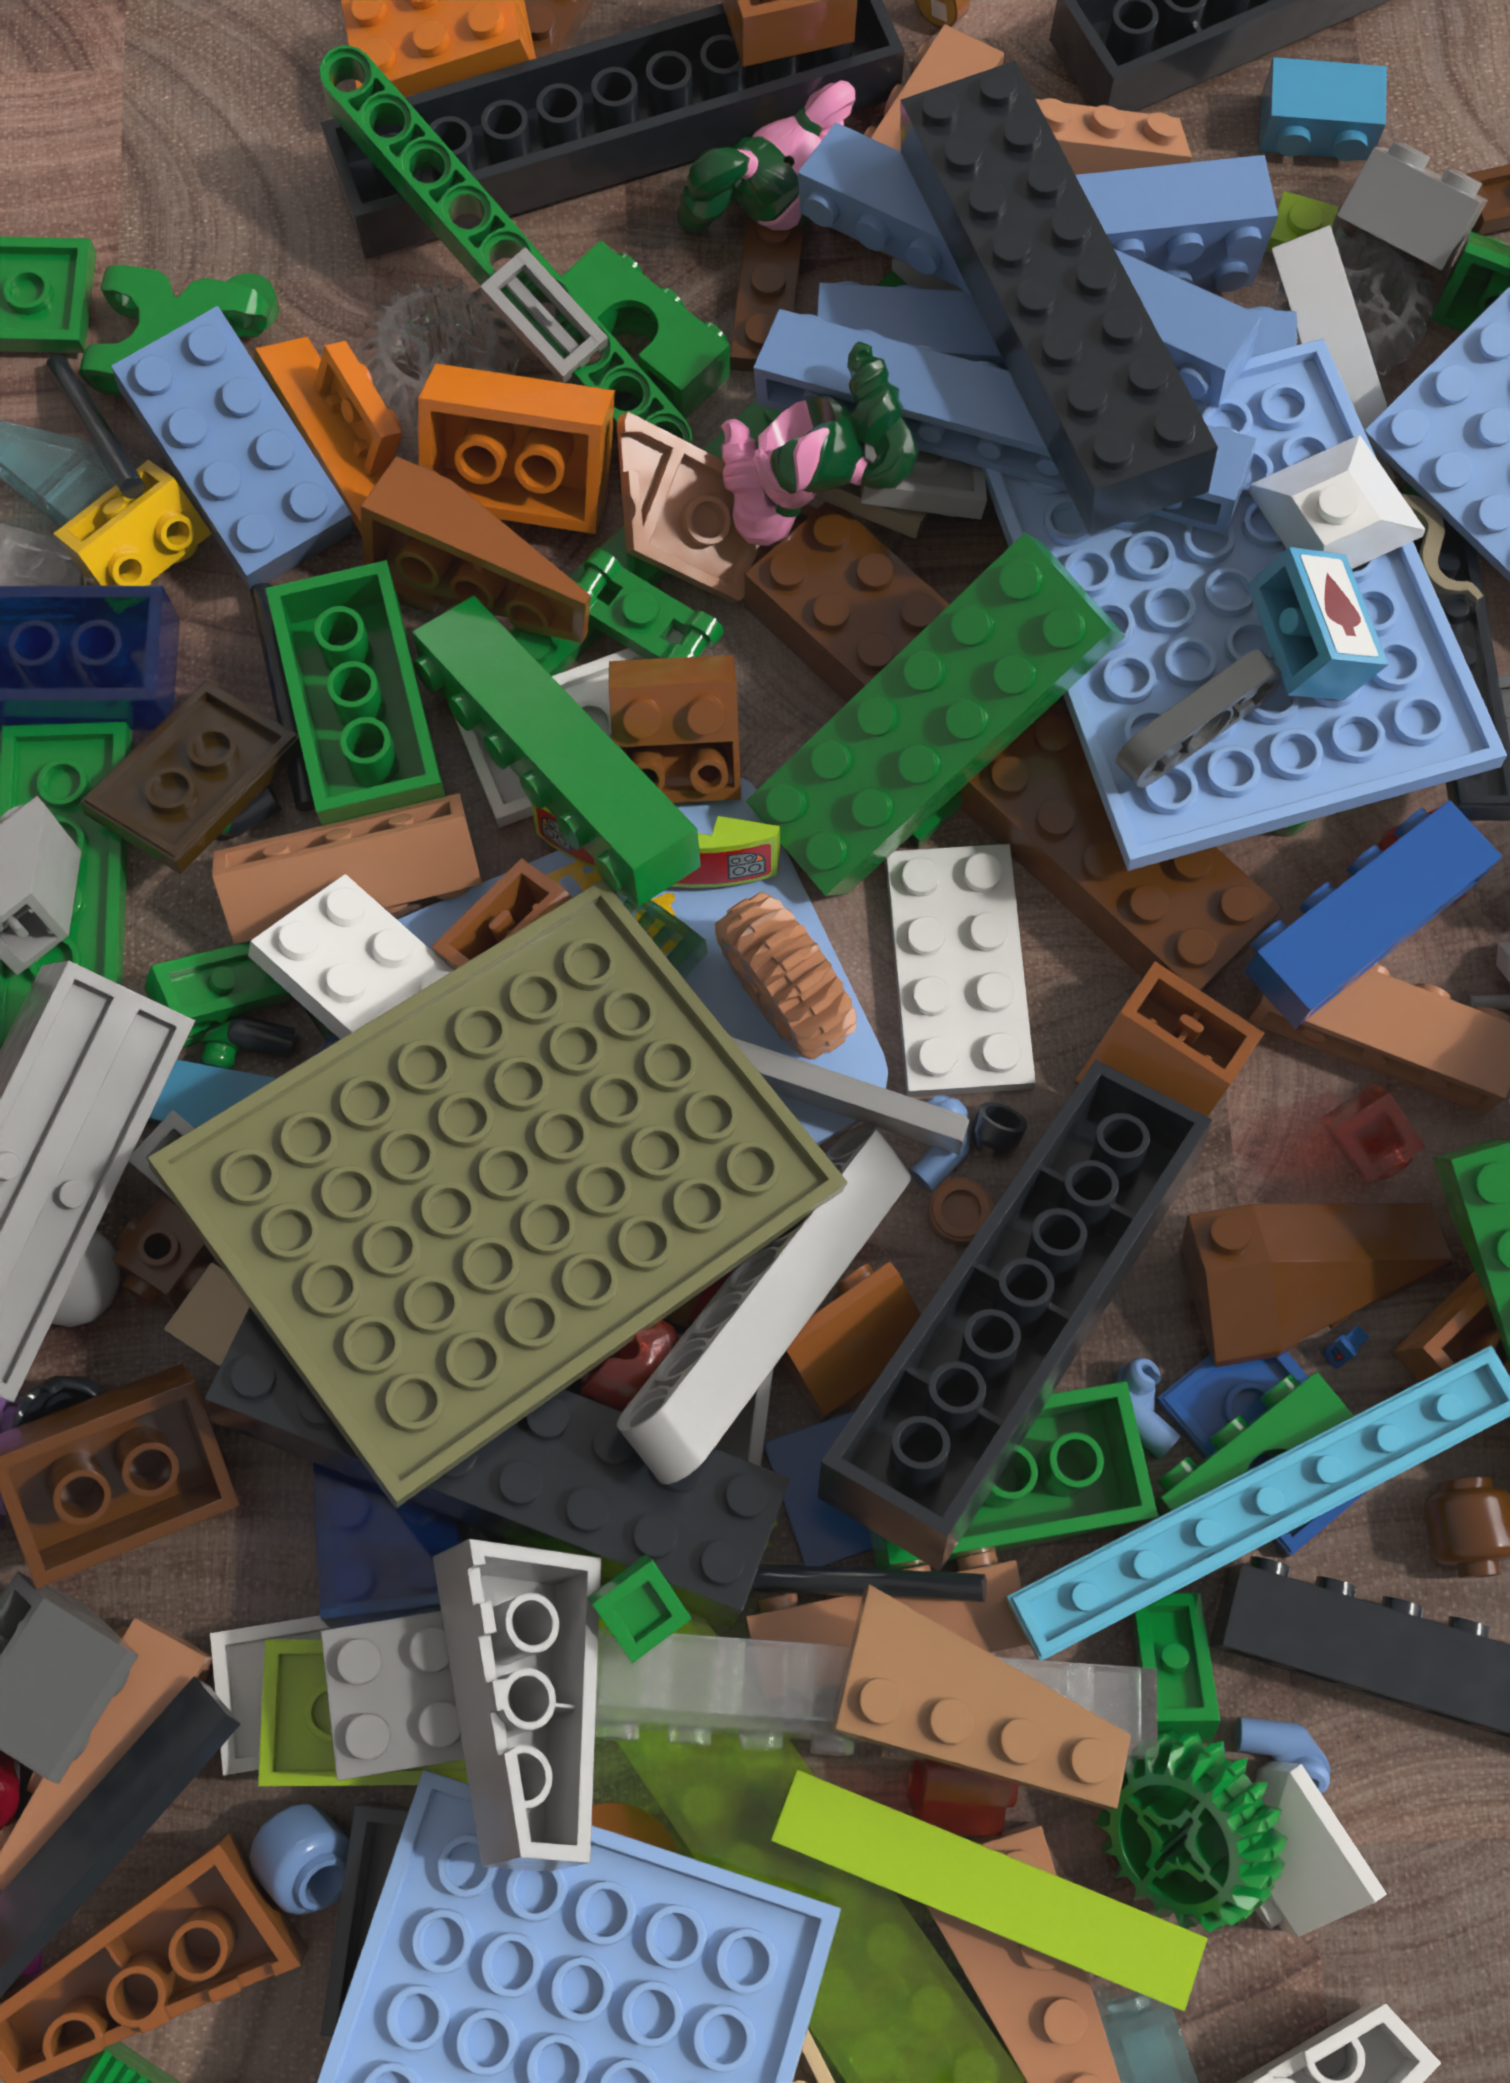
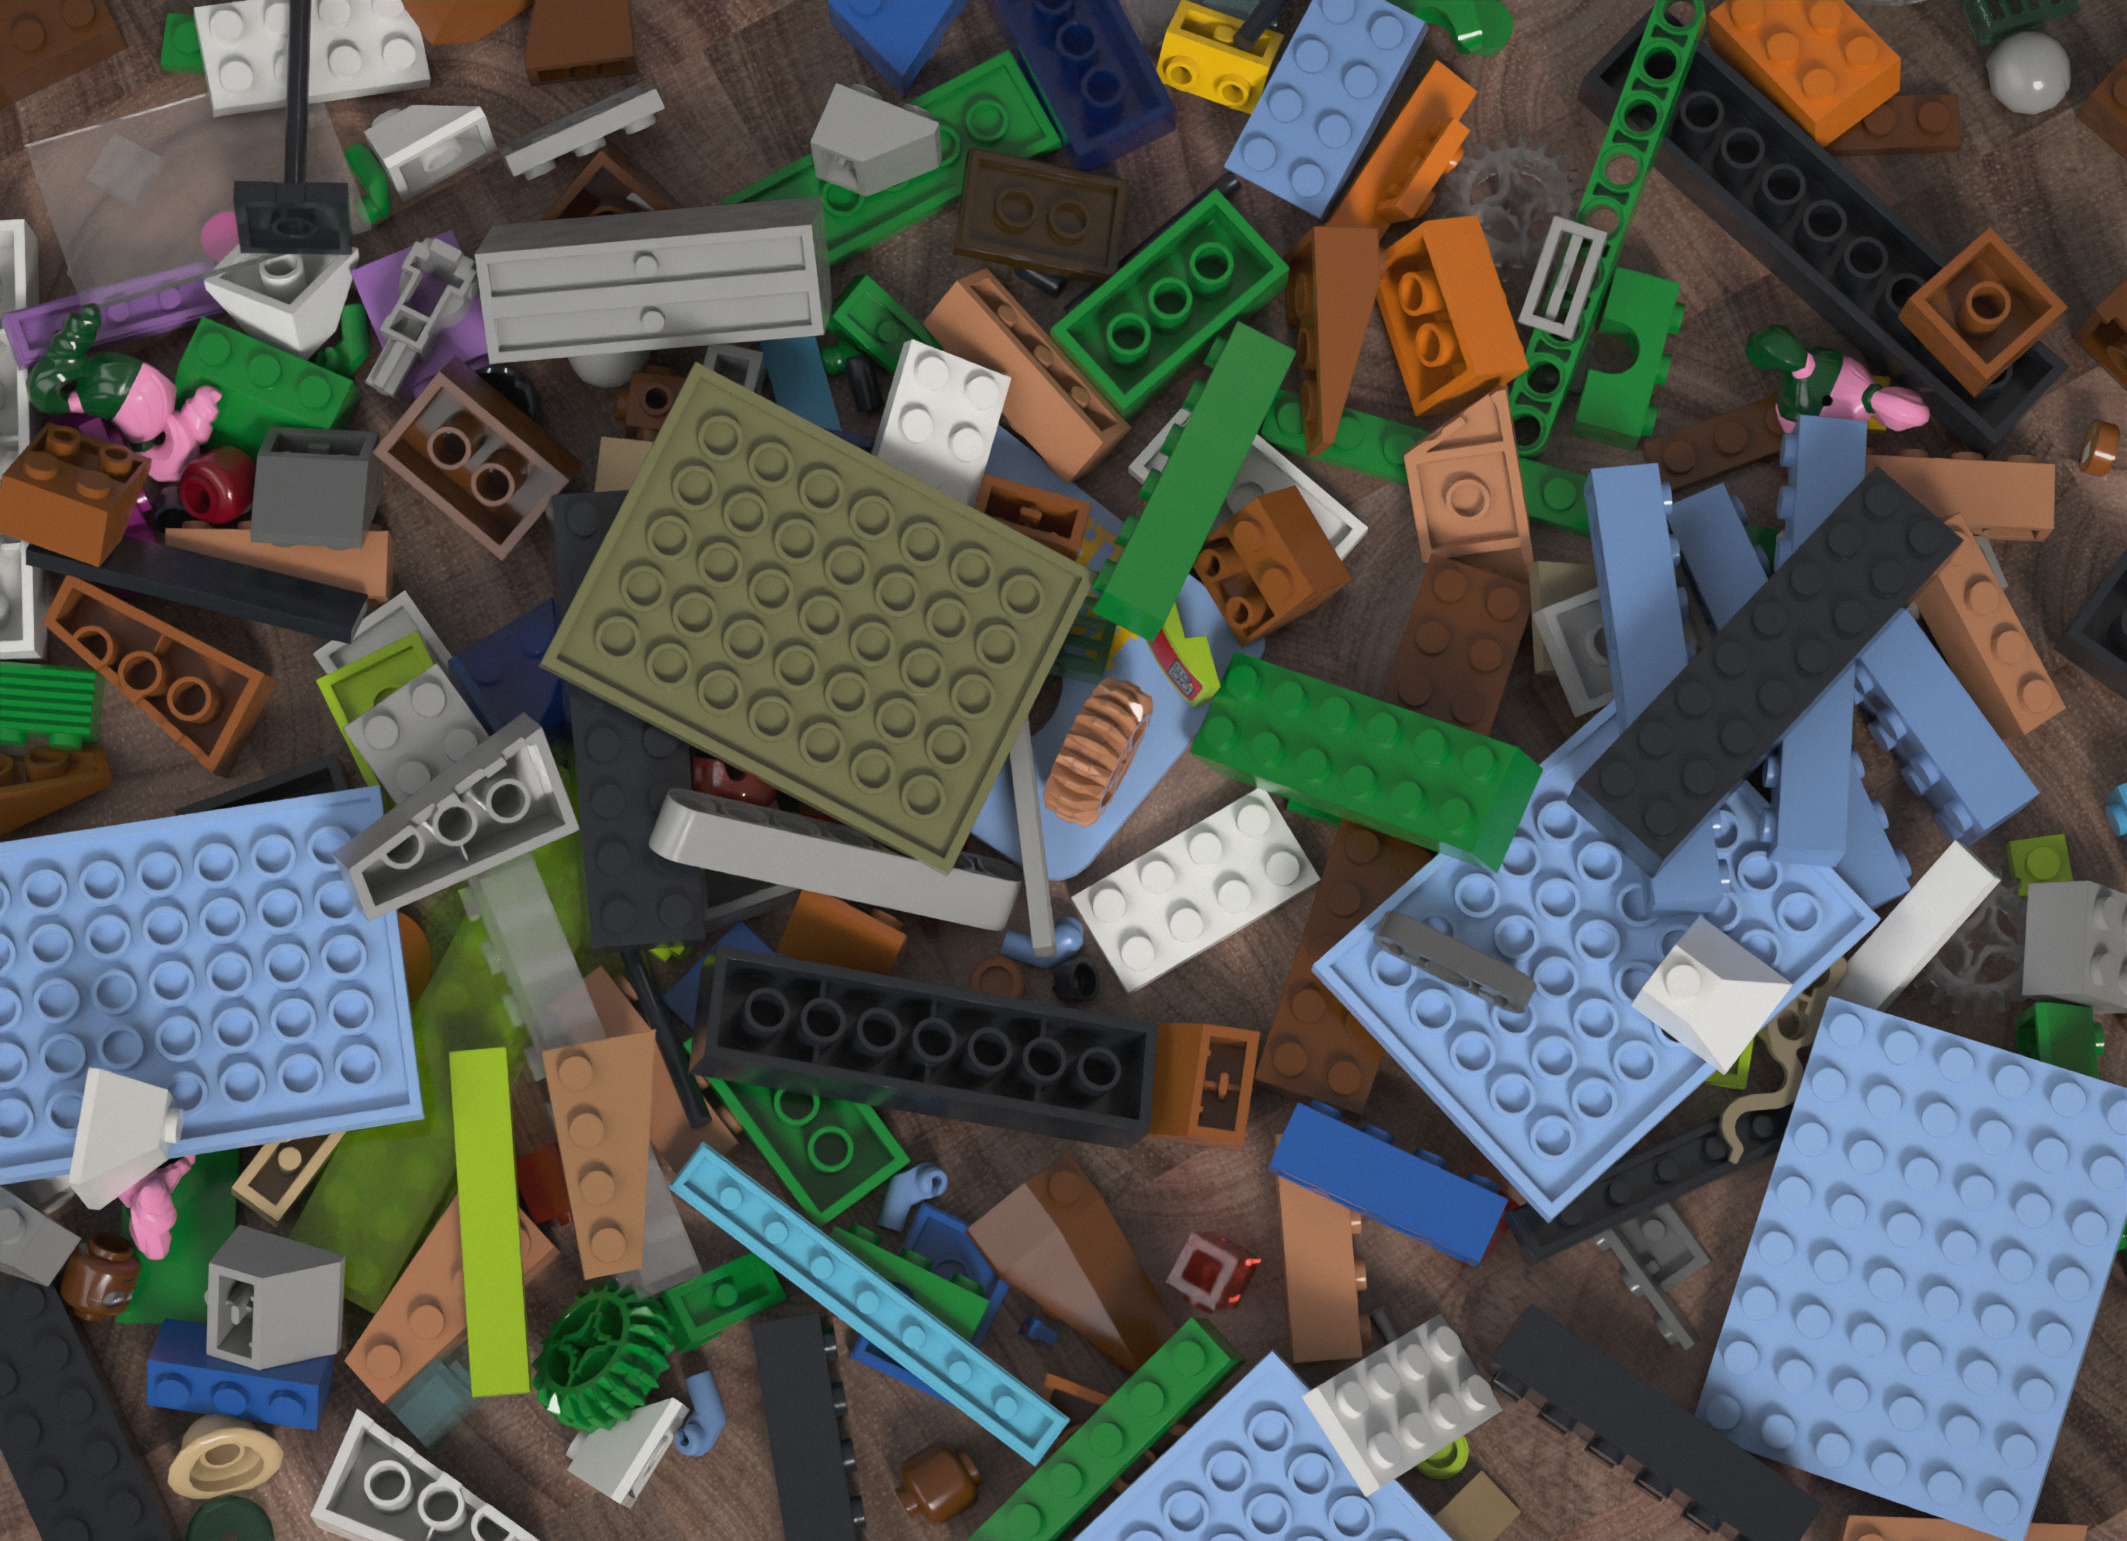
camera: 65 degrees right, 5 degrees up
(300, 1859) = (282, 736): medium blue head -> none
(639, 1608) = (556, 871): green plate -> none
(643, 614) = (1358, 488): green plate -> none
(815, 450) = (1550, 555): hair -> none
(1317, 624) = (1578, 1016): dark azure brick -> none

